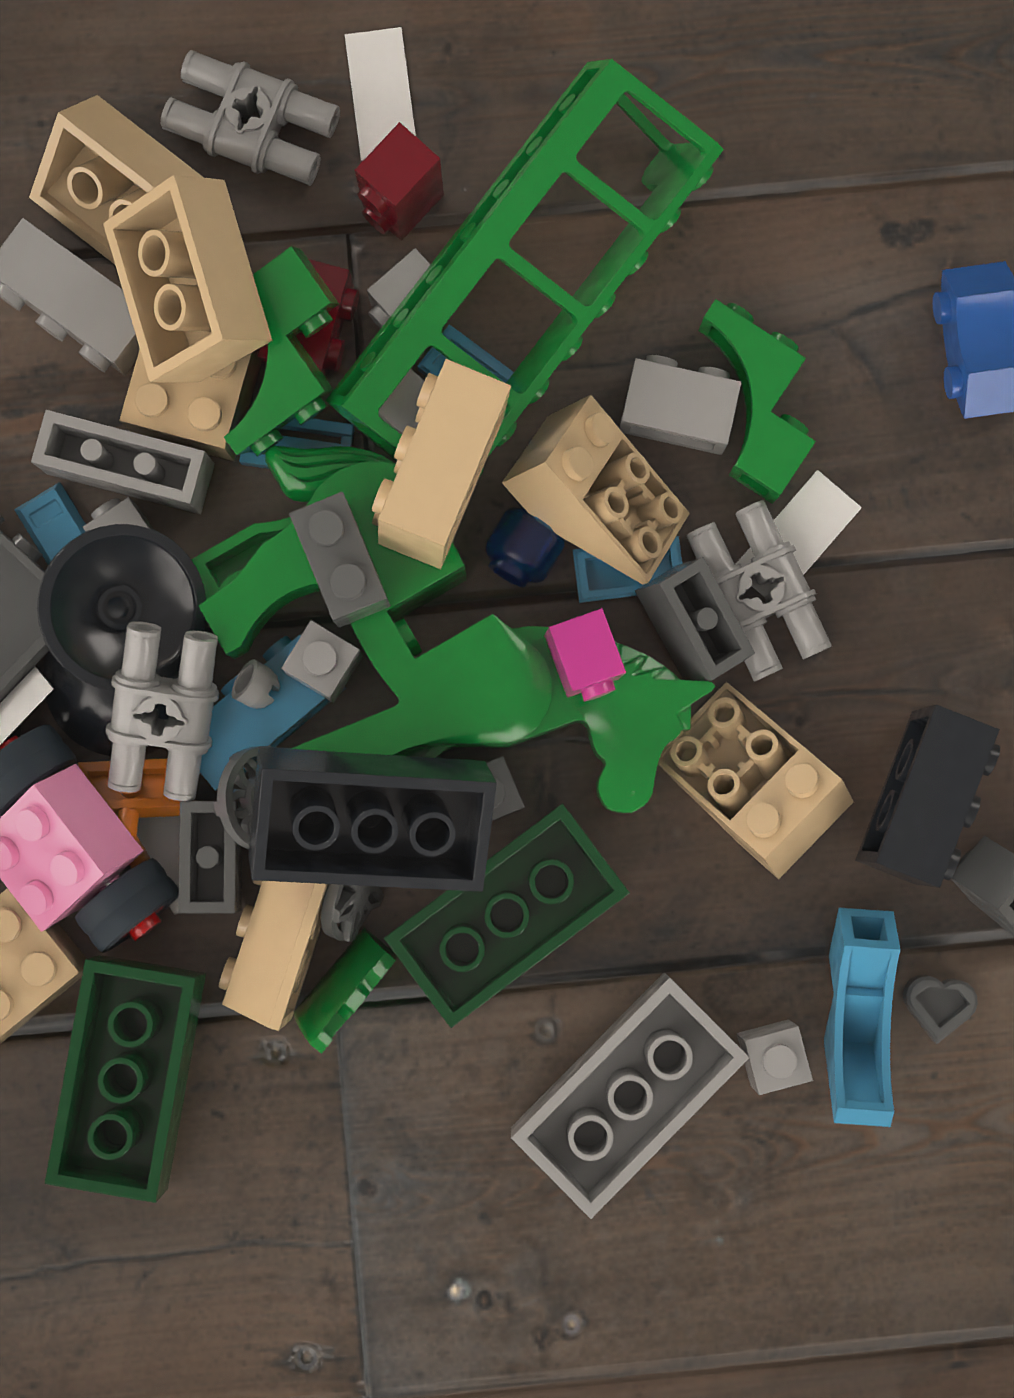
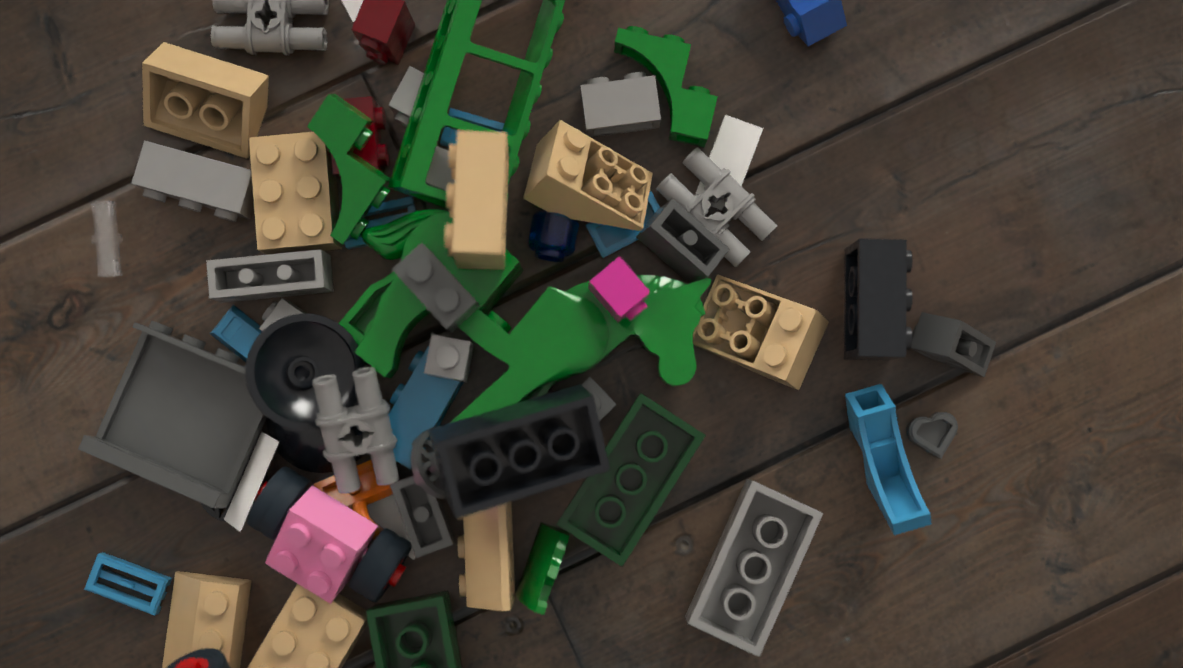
camera: 15 degrees left, 0 degrees up
(187, 279) = (268, 141): tan brick -> none
(254, 685) = (410, 390): light grey hinge -> none
(349, 906) = (526, 512): dark grey wheel -> none
(775, 1057) = (839, 506): light grey brick -> none

